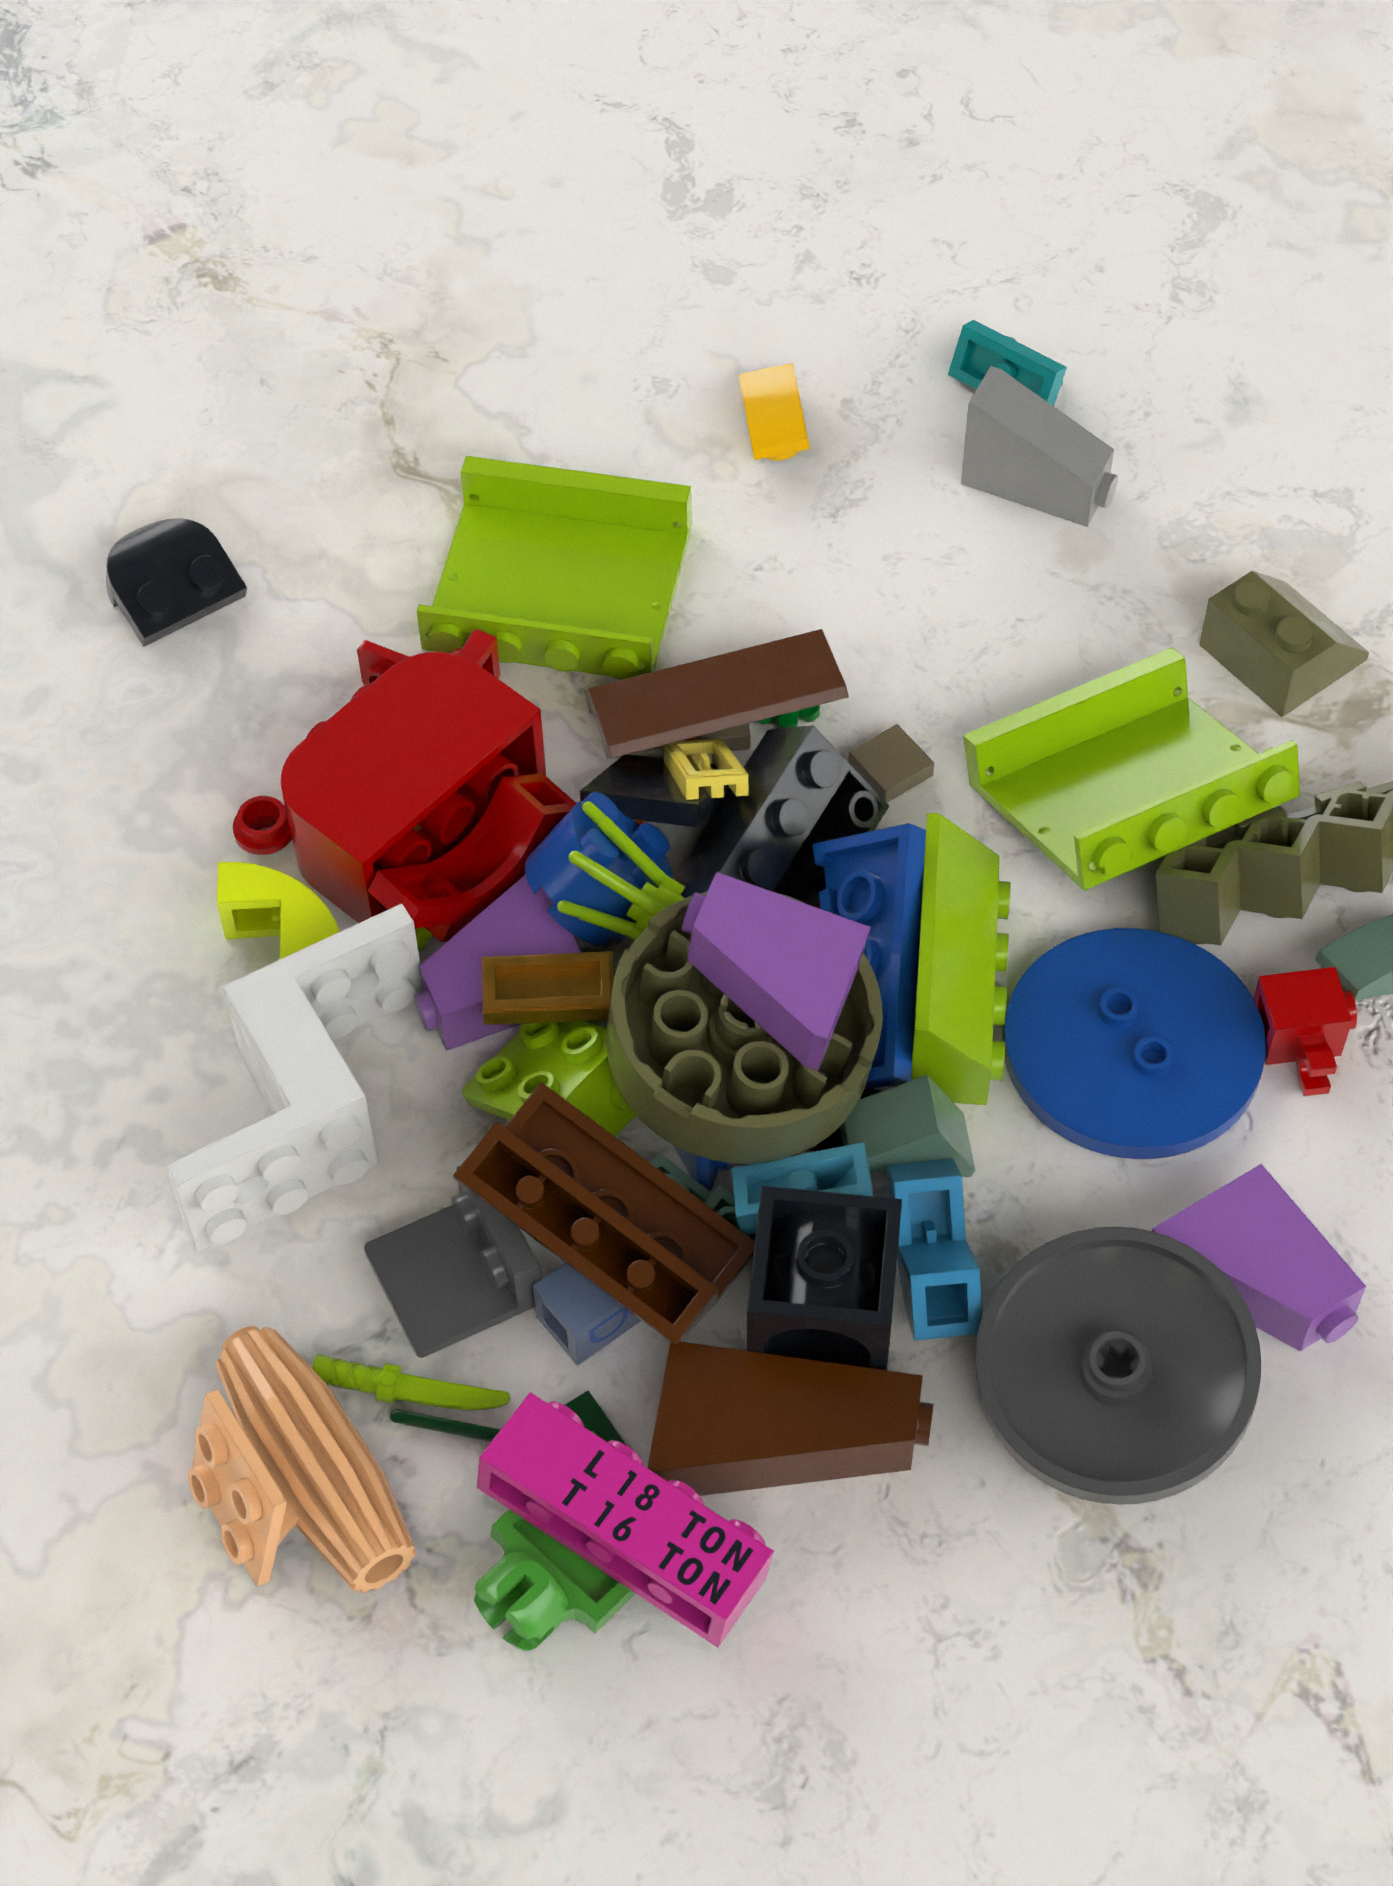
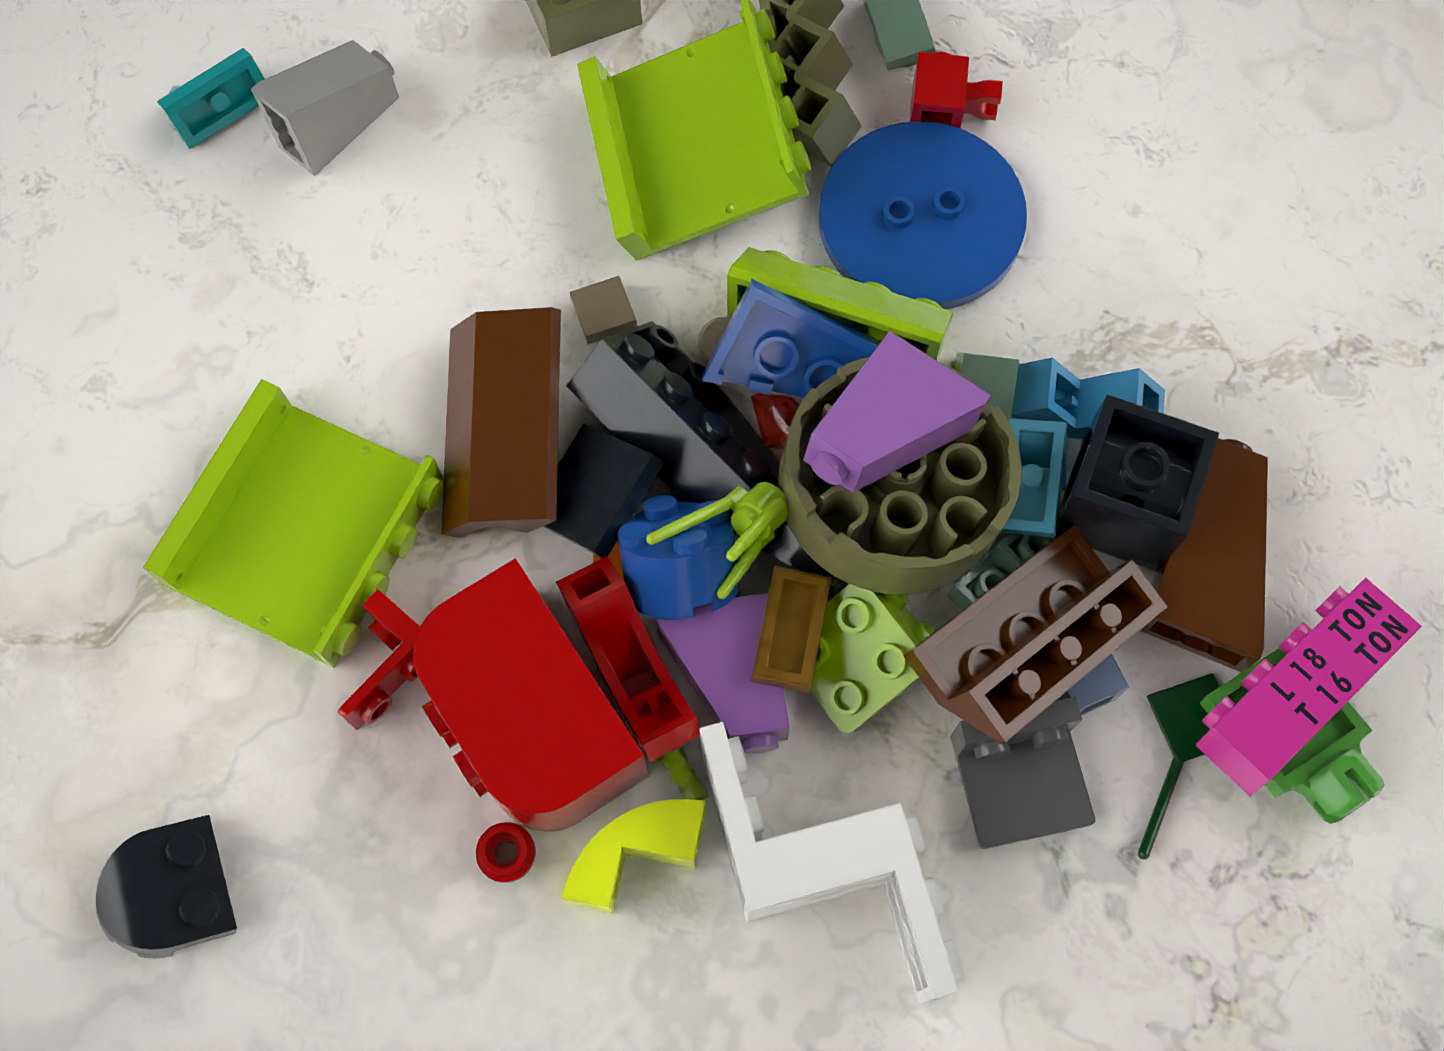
camera: 75 degrees left, 15 degrees up
(289, 1463) = (1199, 945): light nougat plate -> none
(392, 1385) = (1113, 852): lime piece -> none
(697, 772) = (603, 454): light yellow tile -> none
(774, 412) = (183, 293): yellow slope -> none
(1118, 1365) = (1221, 303): dark grey dish -> none
(1273, 1258) = (1139, 186): medium lavender slope -> none

